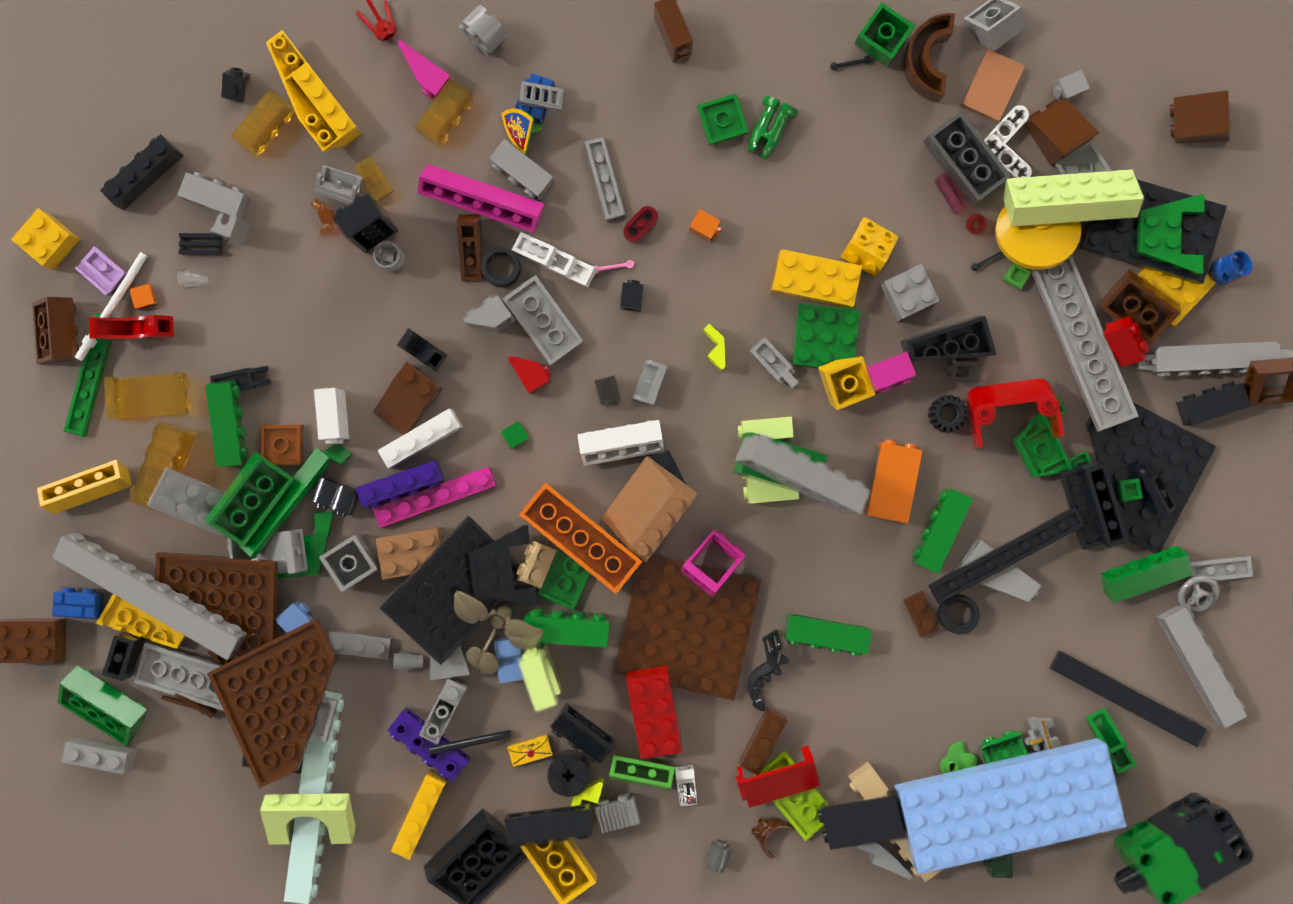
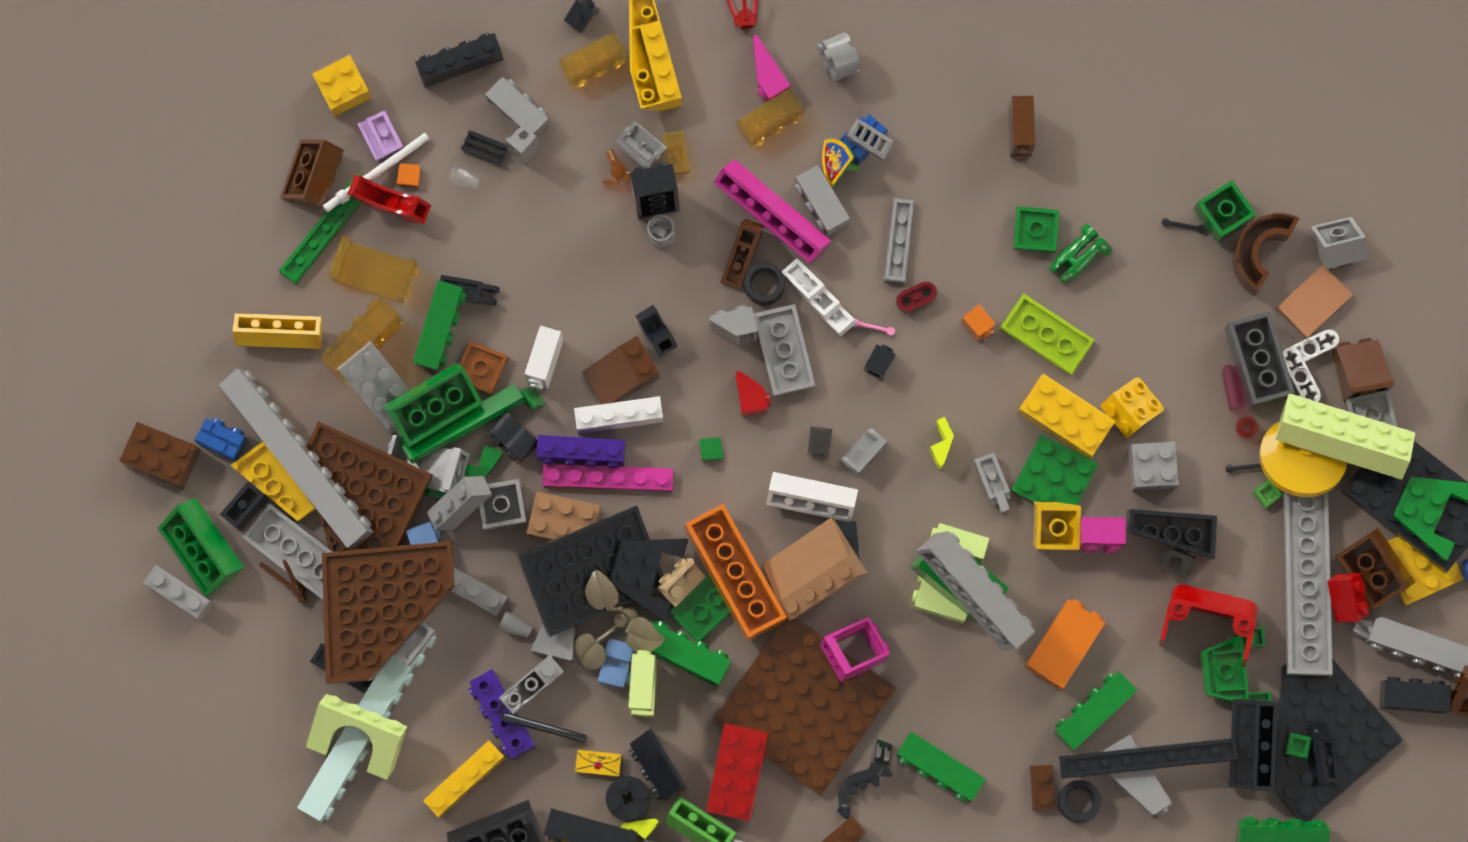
camera: 25 degrees right, 10 degrees down
(310, 578) = (459, 503): none -> light grey brick
(769, 211) = (1047, 334): none -> lime tile
(957, 405) = (1155, 590): black tyre -> none
(1070, 86) = (1389, 332): light grey brick -> none

